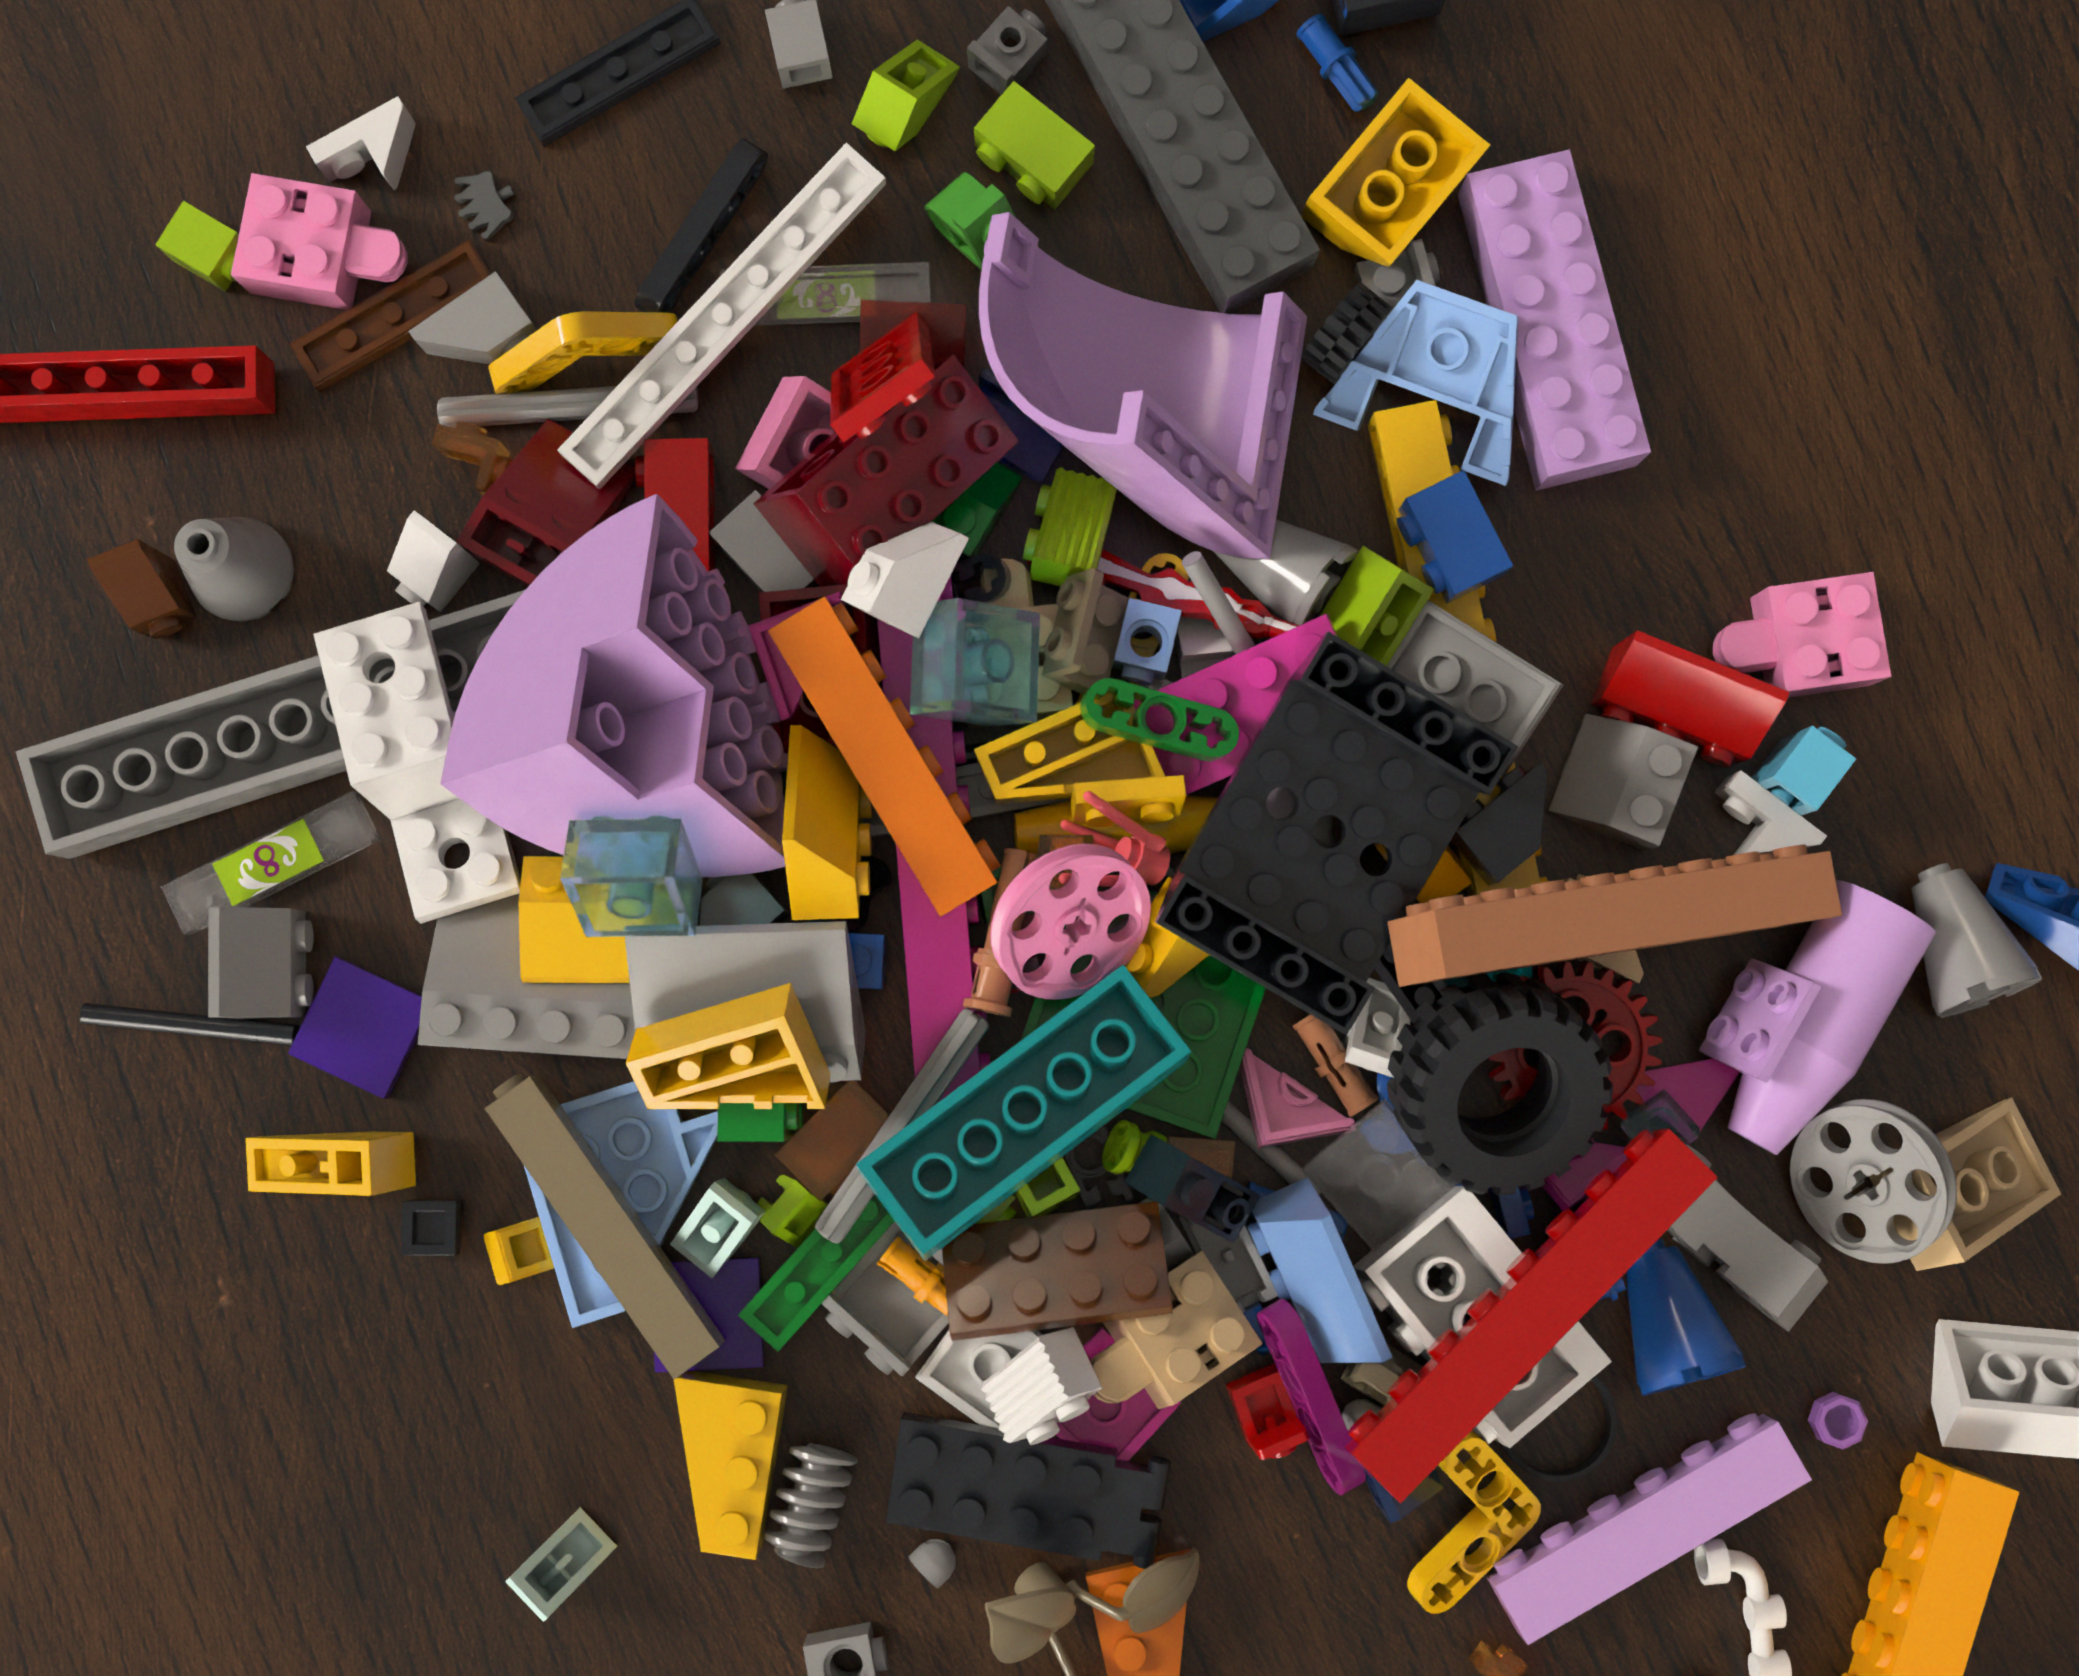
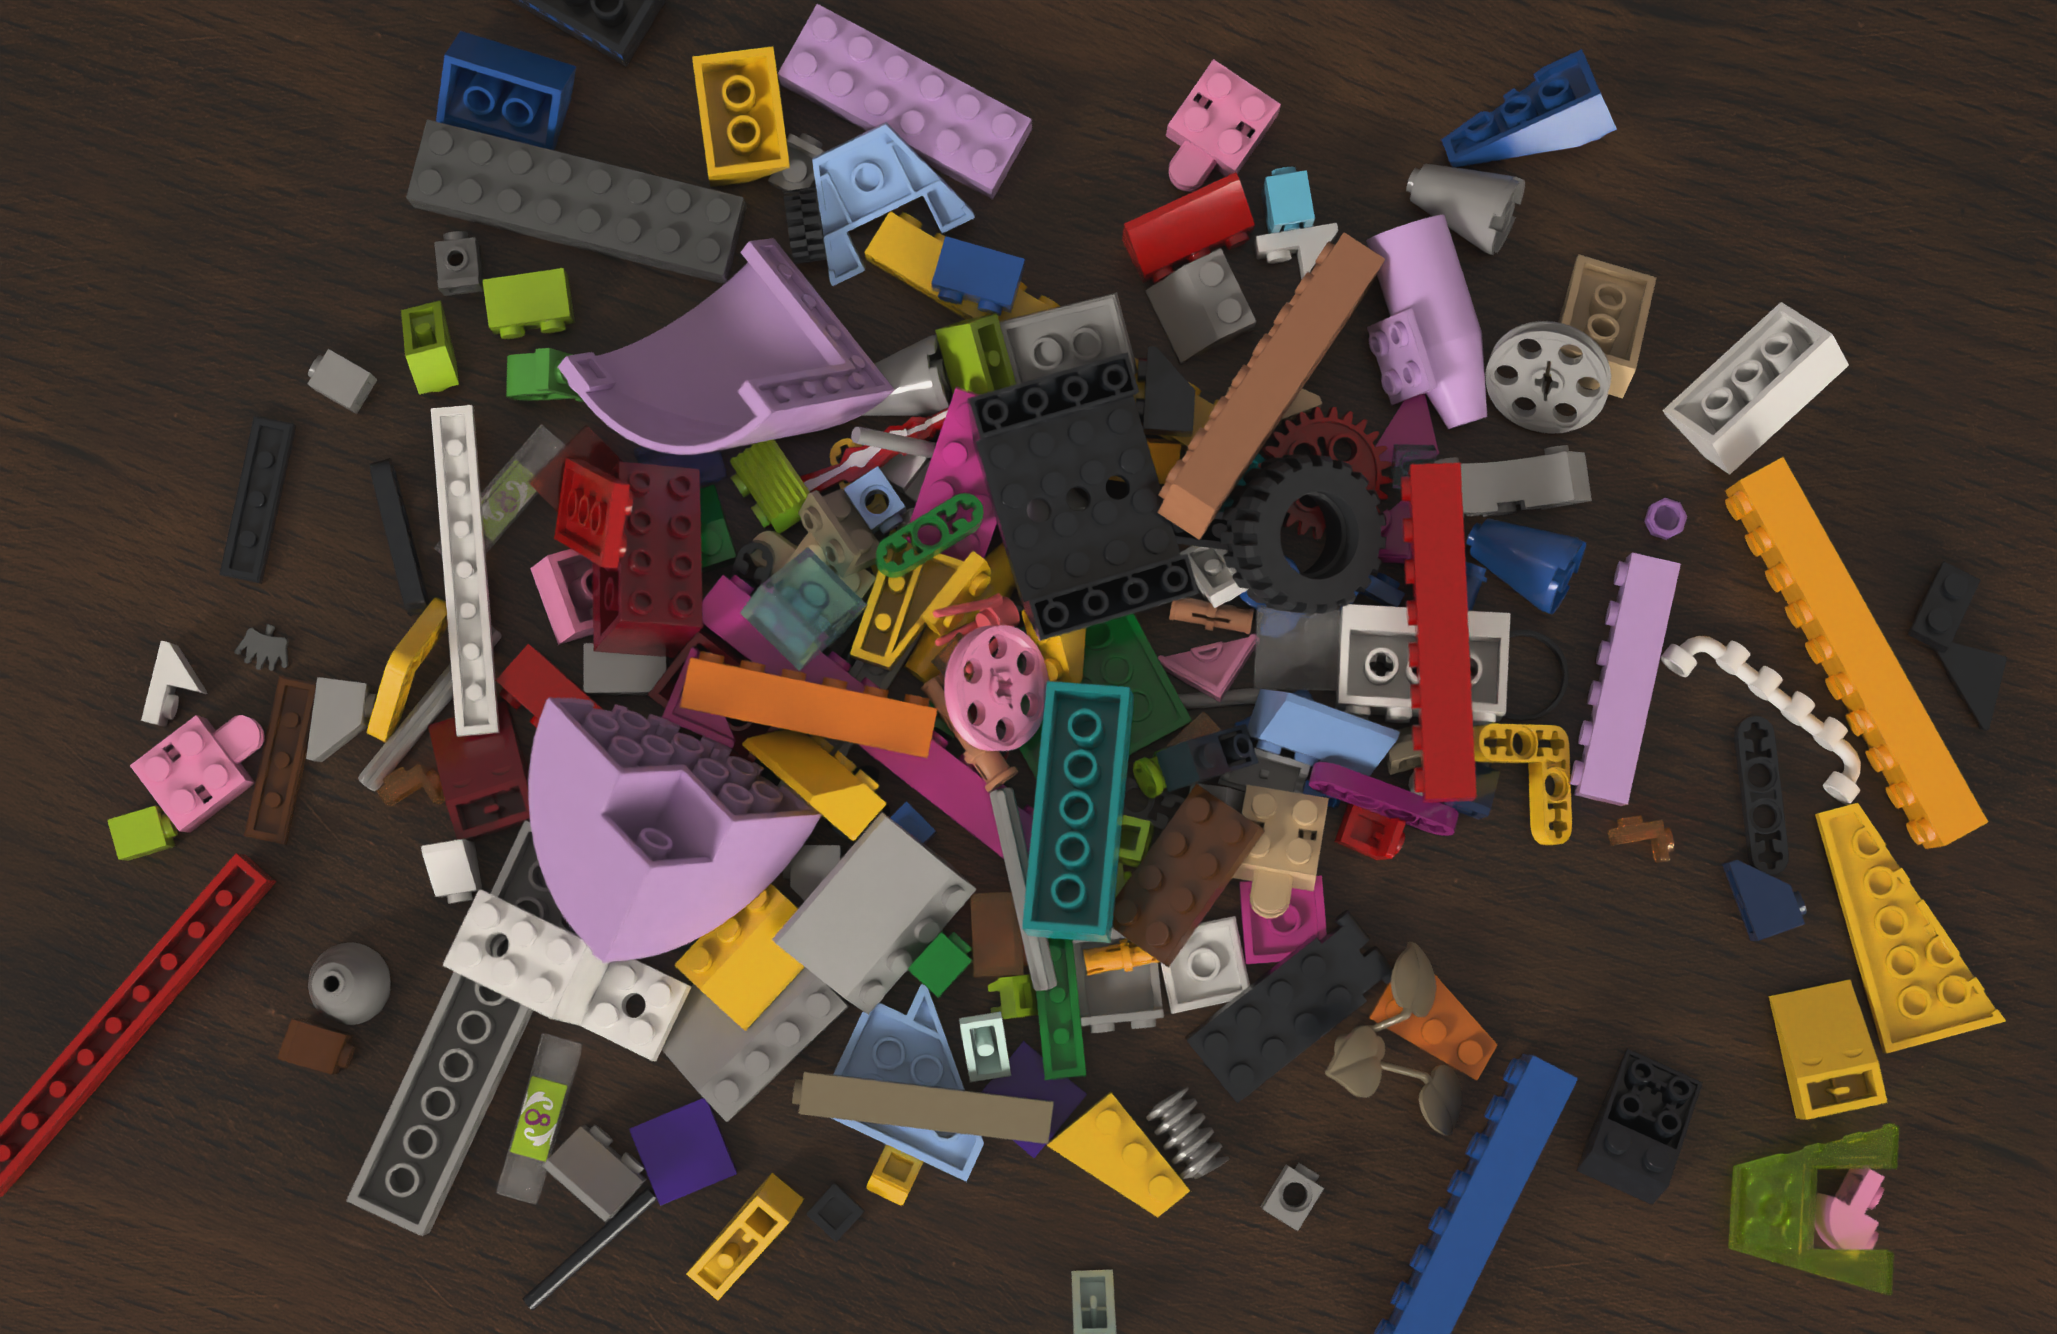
camera: 45 degrees left, 0 degrees up
(632, 877) = (749, 907): clear light blue brick -> none
(731, 1053) = (897, 942): yellow wedge -> none
(905, 576) = (721, 602): white slope -> none
(934, 1561) = (1284, 1095): light grey hinge -> none
(1042, 1387) = (1240, 942): white brick -> none
(1337, 63) = (642, 83): blue axle -> none

